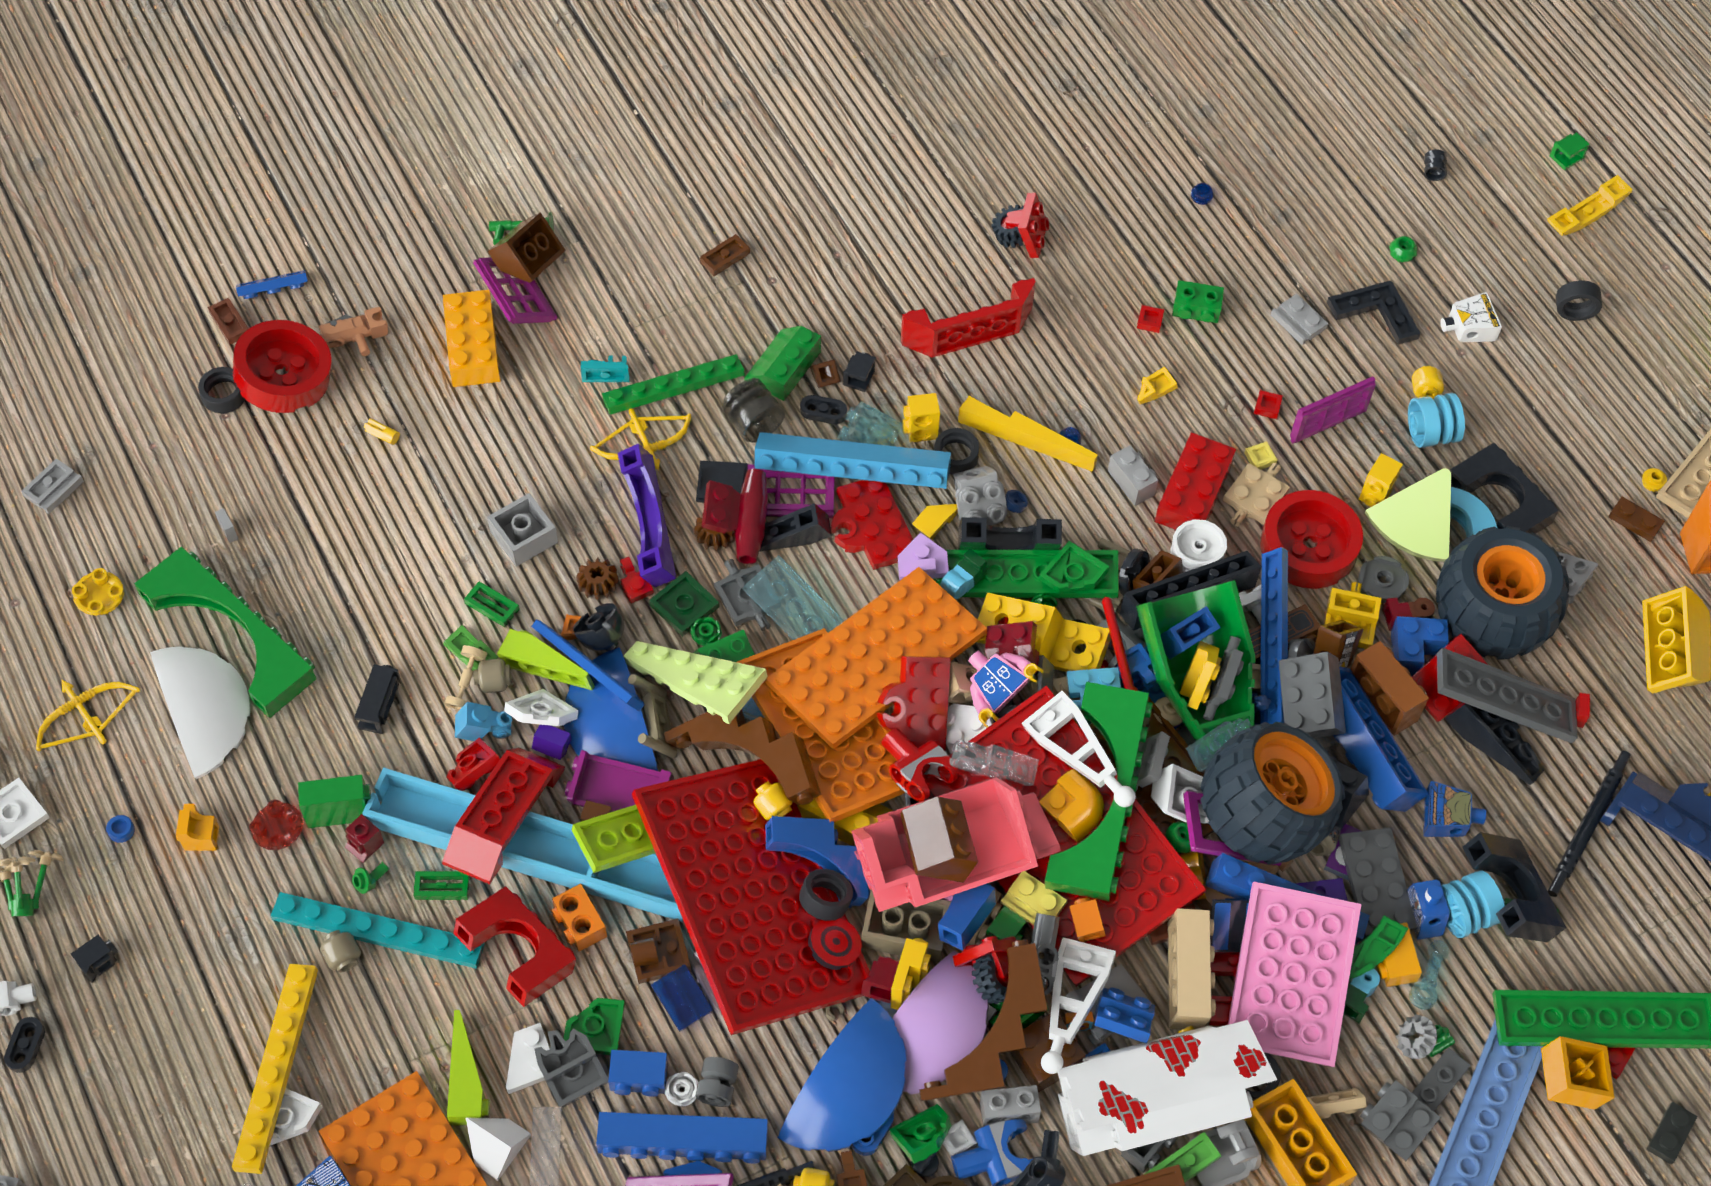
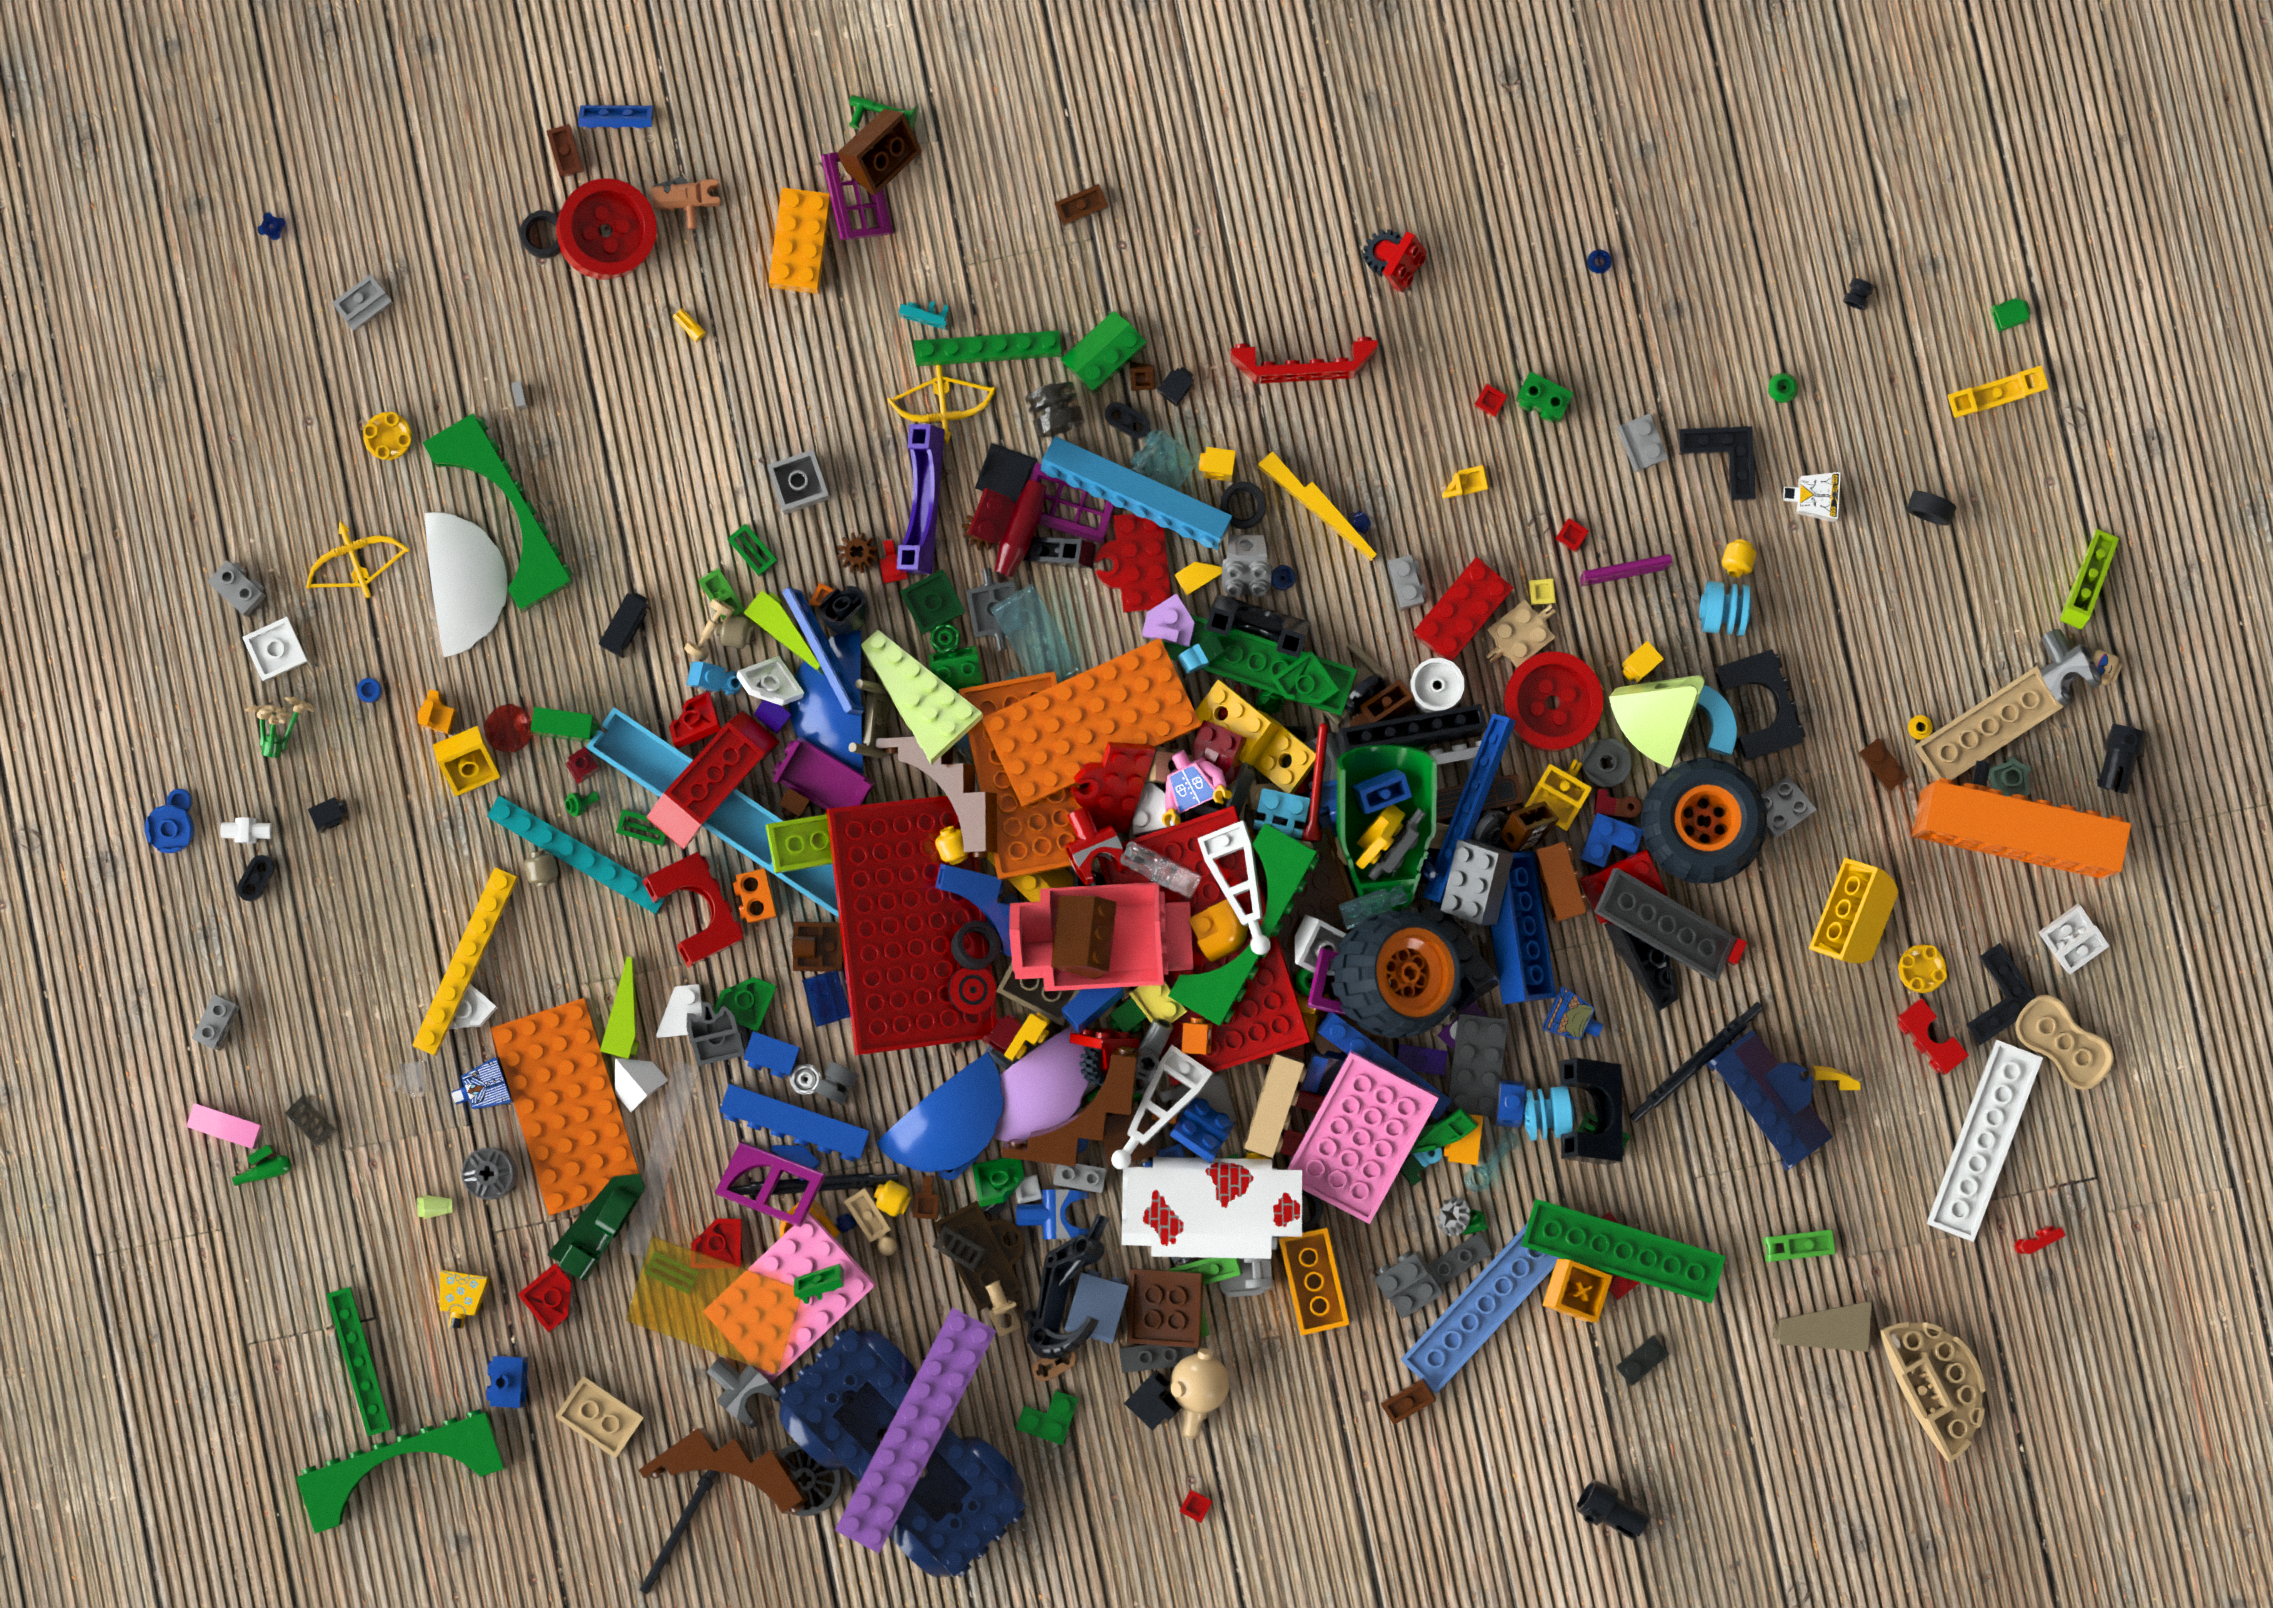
camera: 20 degrees right, 25 degrees up
(237, 867) = (466, 761): none -> yellow slope
(1154, 752) = (1305, 904): light grey plate -> none
(1342, 1101) = (1360, 1252): tan plate -> none

